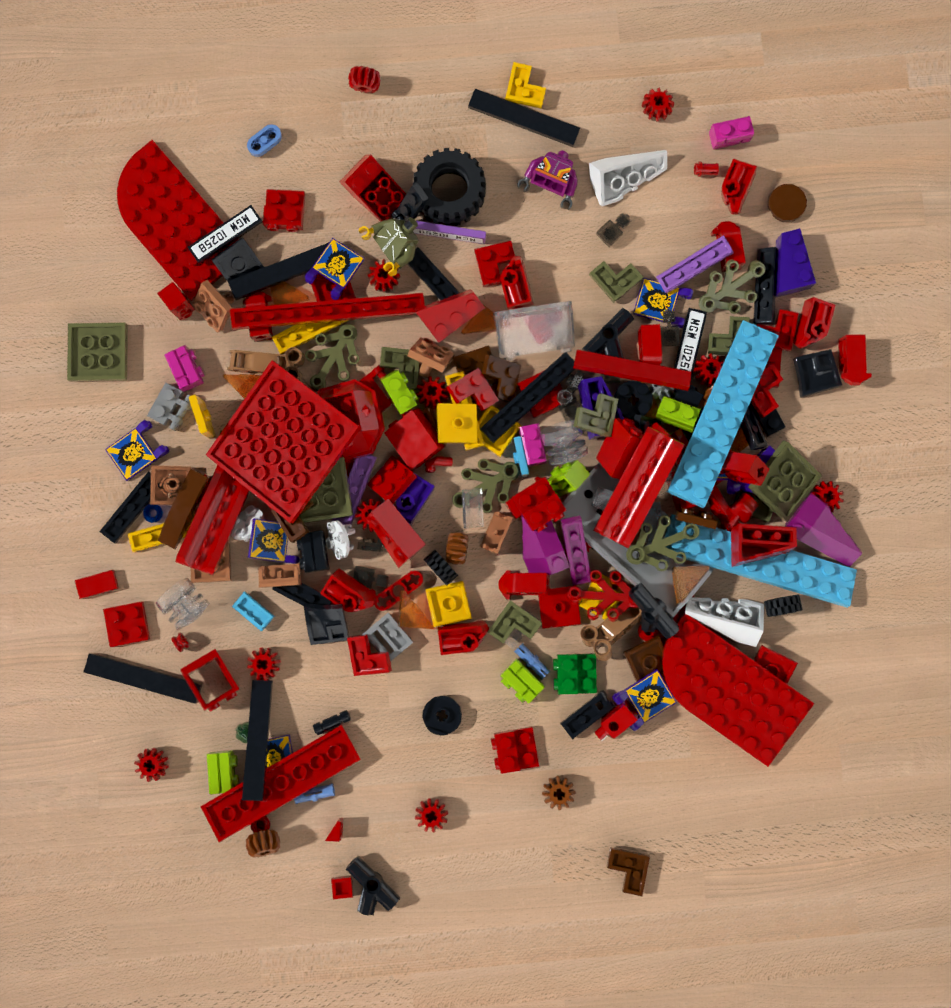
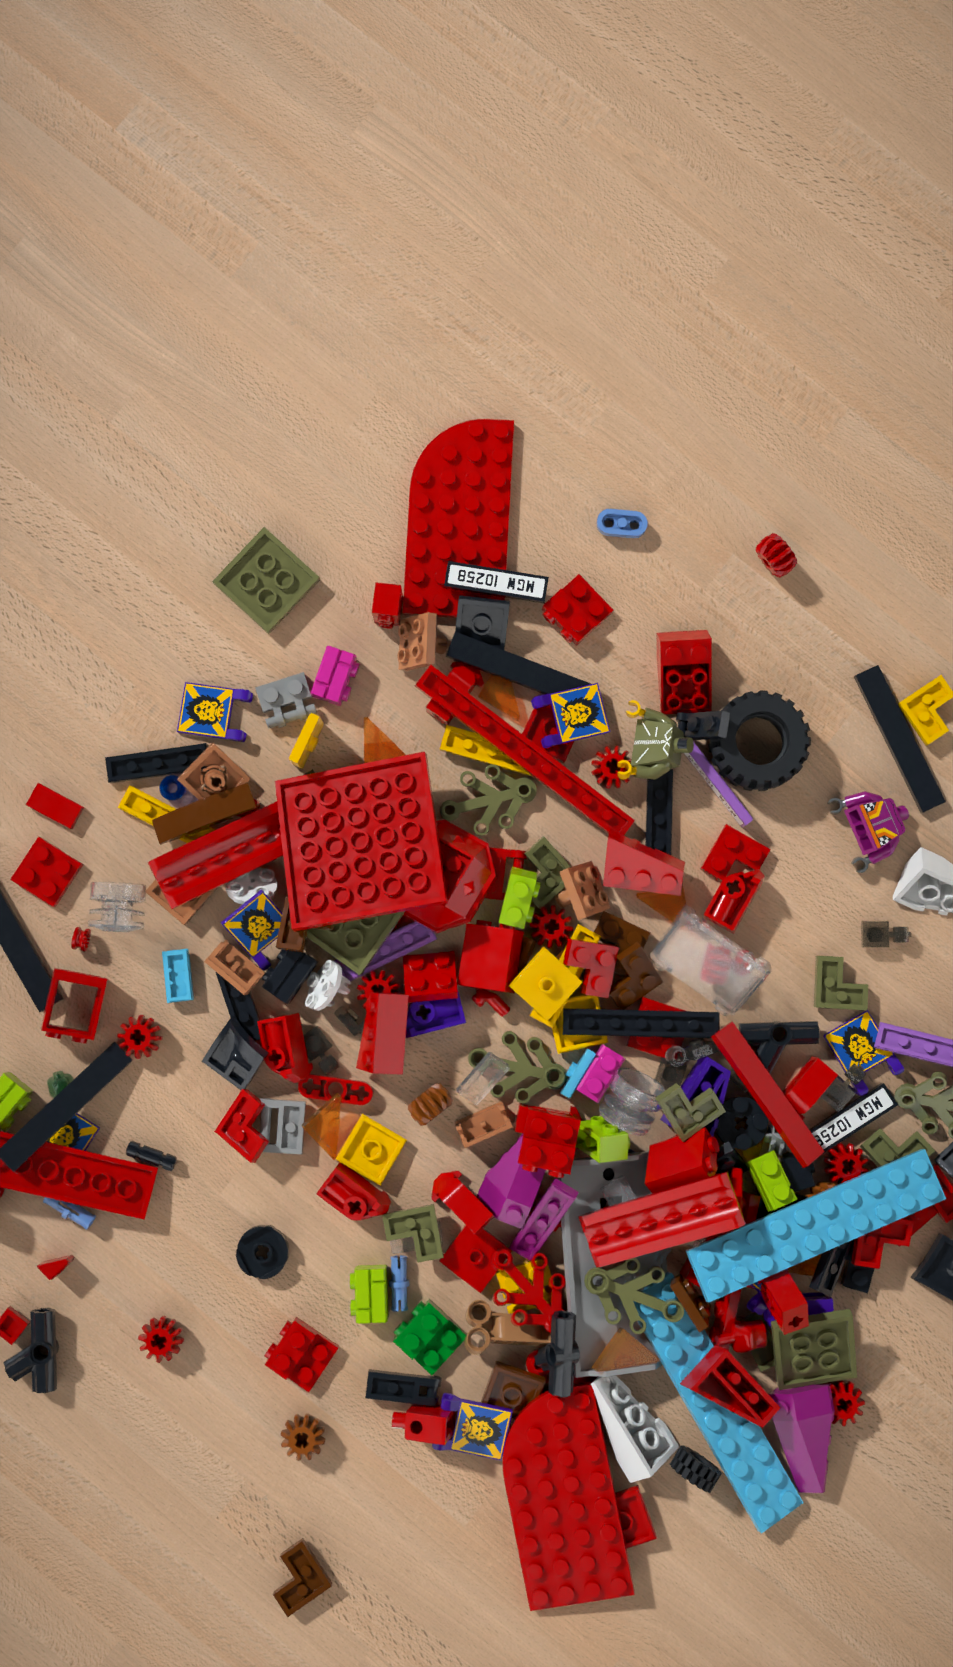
camera: 40 degrees right, 0 degrees up
(257, 362) = (413, 741): medium nougat piece -> none
(440, 567) = (396, 1108): black tyre -> none

